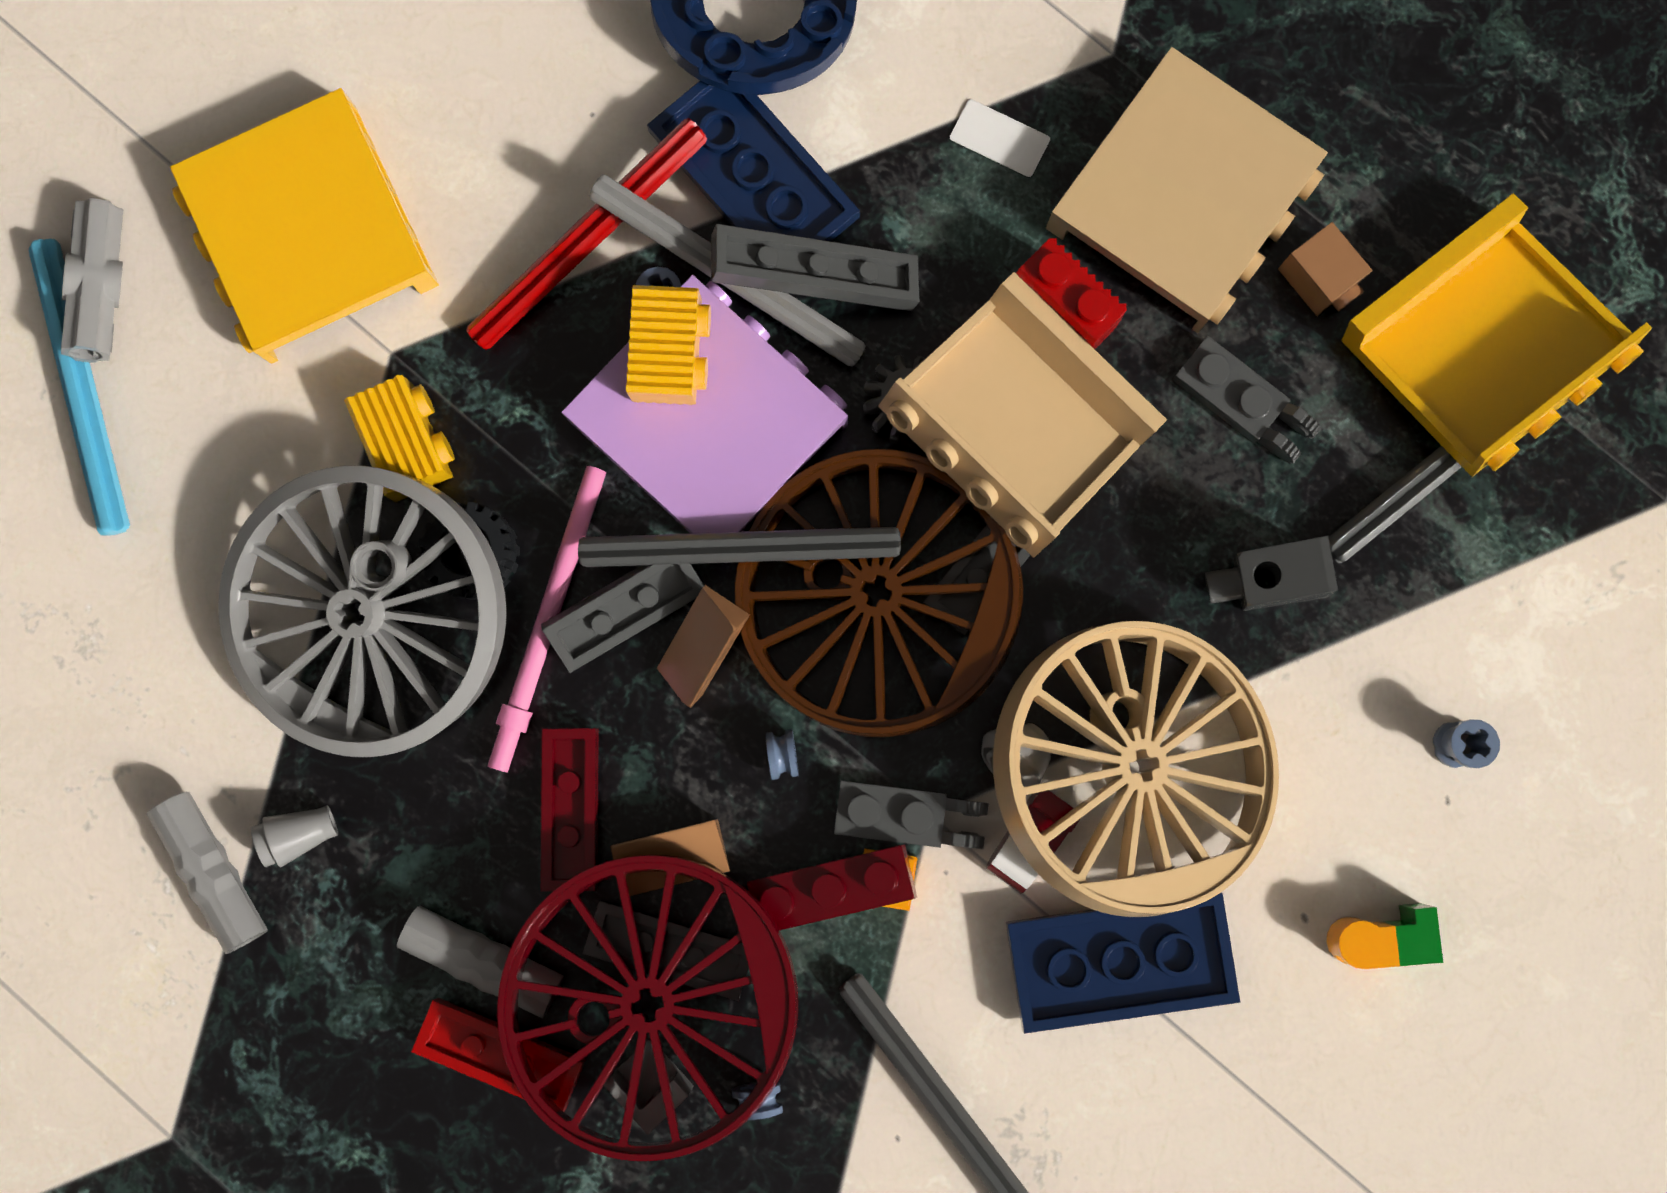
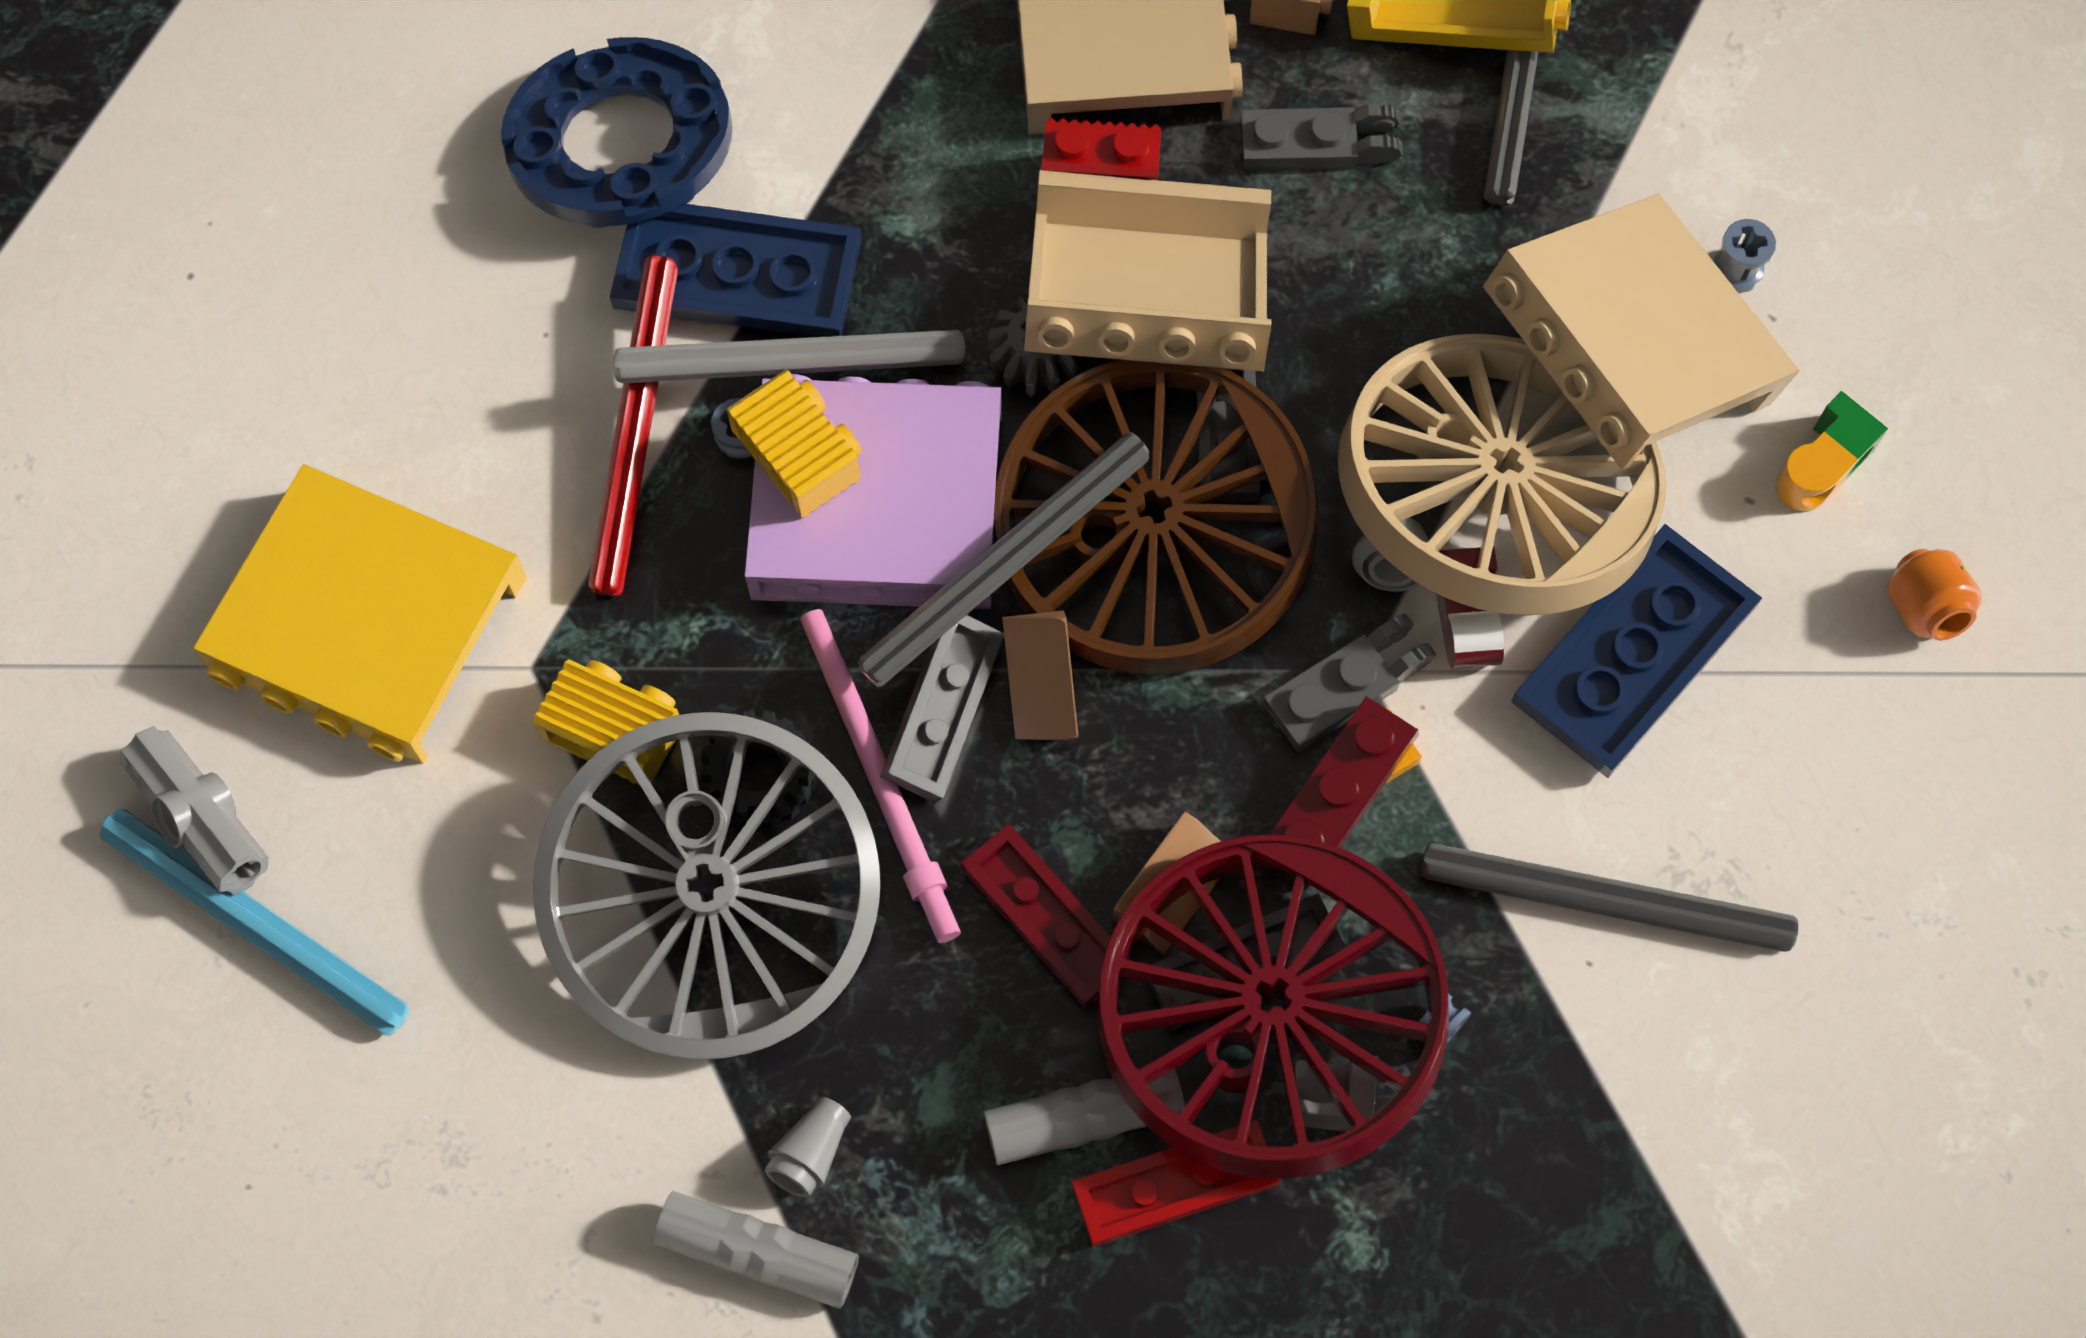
camera: 45 degrees left, 15 degrees down
(782, 754) = (1193, 715): sand blue bush -> none
(814, 268) = (864, 295): dark grey plate -> none
(999, 138) = (924, 93): white sticker -> none
(1299, 571) = (1473, 238): dark grey torso -> none
(1332, 743) = (1638, 326): none -> tan panel
(1364, 1100) = (1934, 594): none -> orange head

